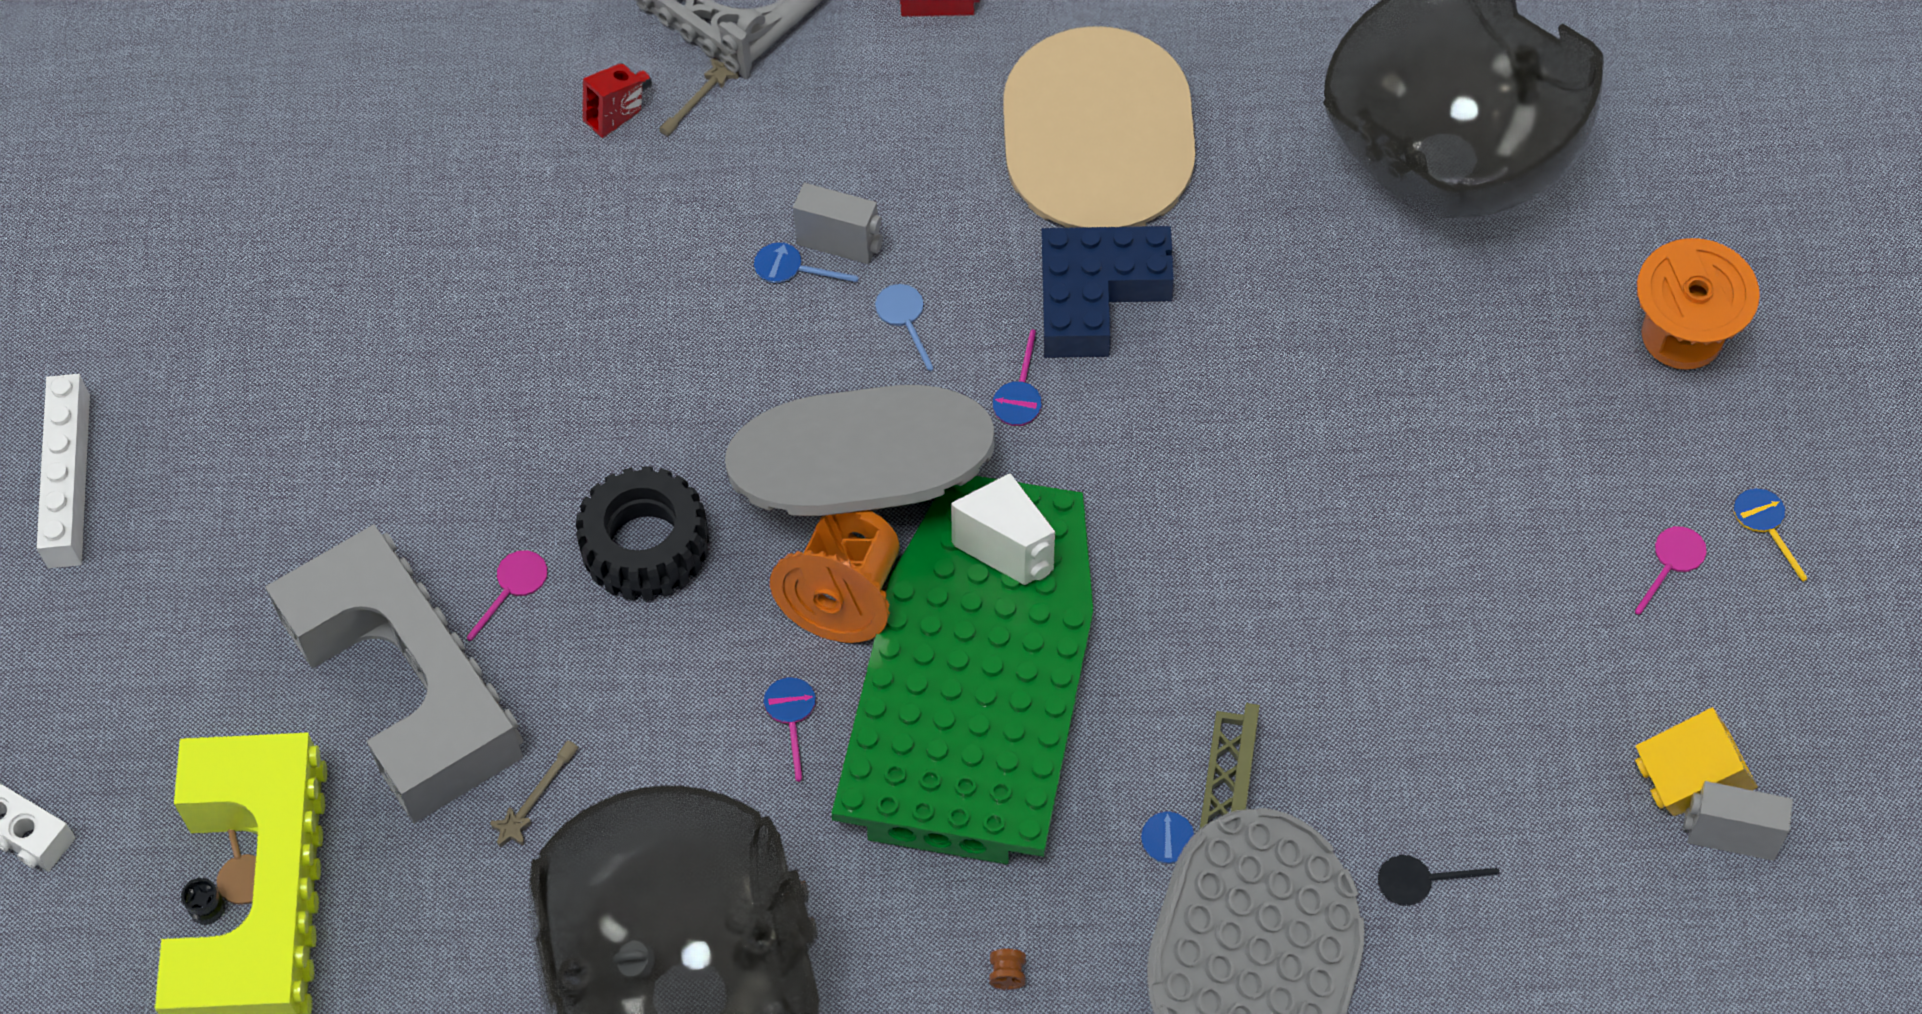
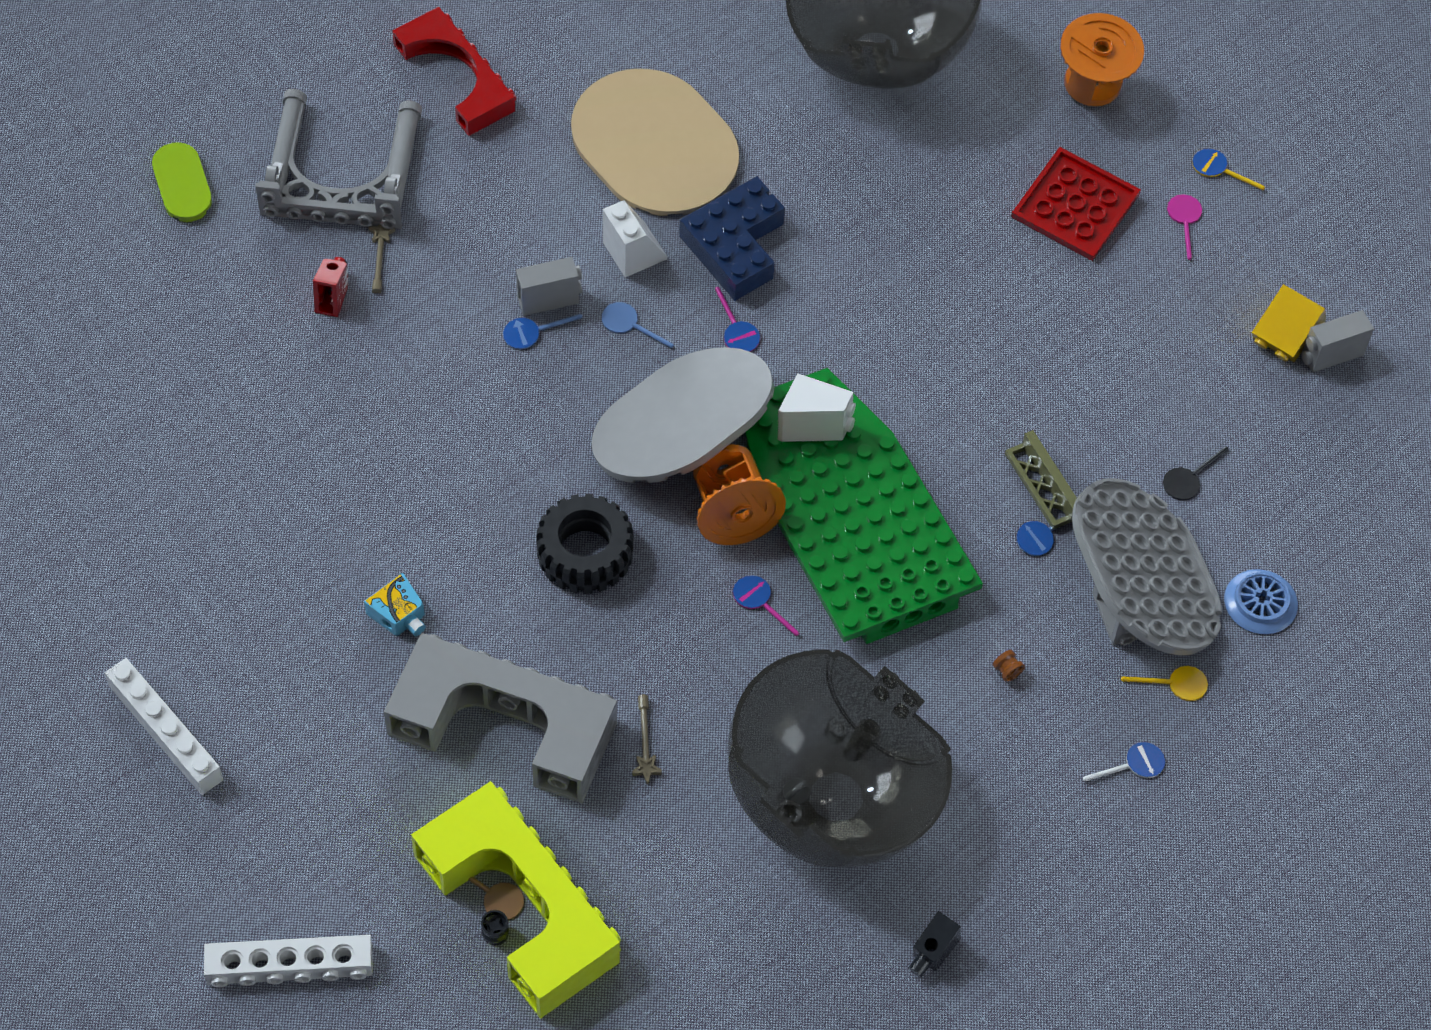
camera: 40 degrees left, 0 degrees up
(397, 485) = (397, 607): none -> torso
(518, 575) = (521, 616): dark pink piece -> none
(974, 221) = (630, 239): none -> white slope
(1543, 467) = (1076, 203): none -> red plate

